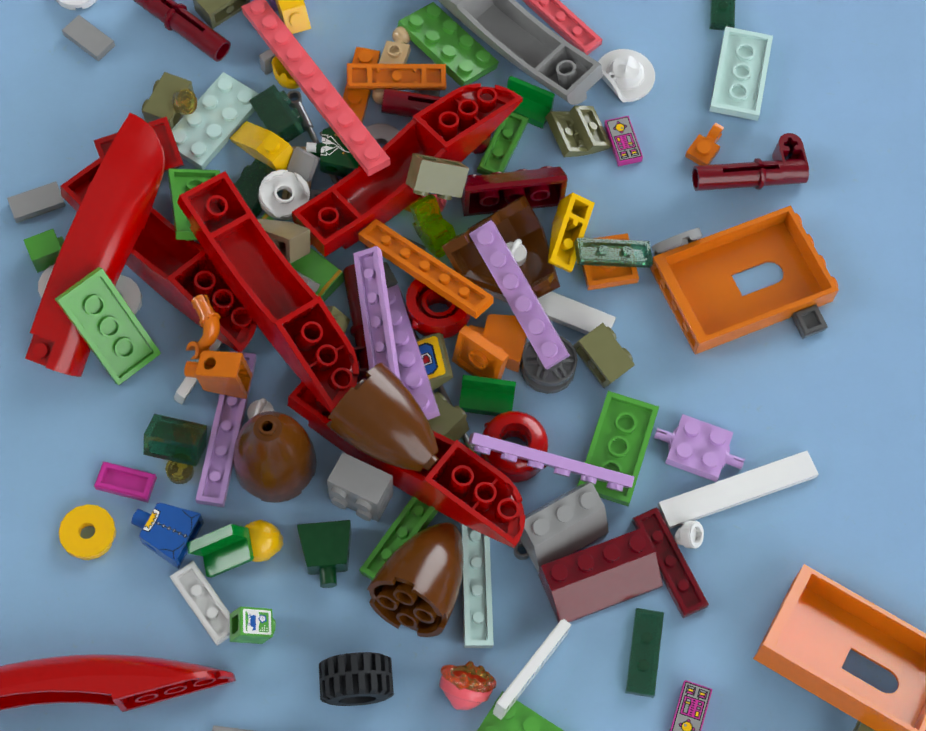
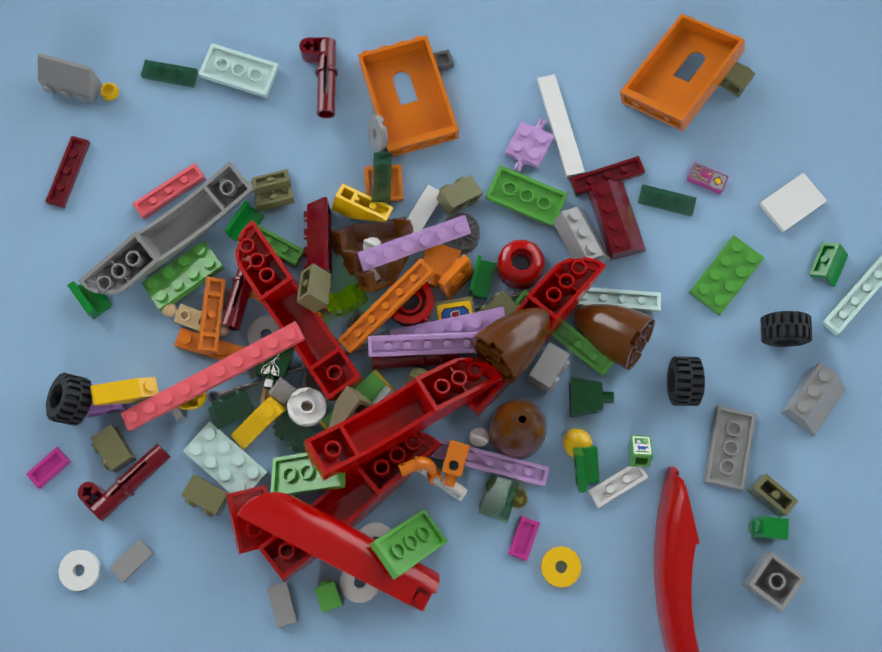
camera: 80 degrees left, 10 degrees up
(168, 531) = (566, 507): blue torso -> none
(184, 102) = (212, 480): clear yellow tile -> none
(466, 685) = (687, 311): hair -> none
(531, 669) = (680, 269): white tile -> none
(538, 459) = (541, 242): lavender plate -> none
(623, 141) = (284, 160): tile -> none
(627, 74) = (225, 147): white hat -> none
(690, 534) = (592, 158): white tile -> none
(705, 148) = (298, 106): orange plate -> none

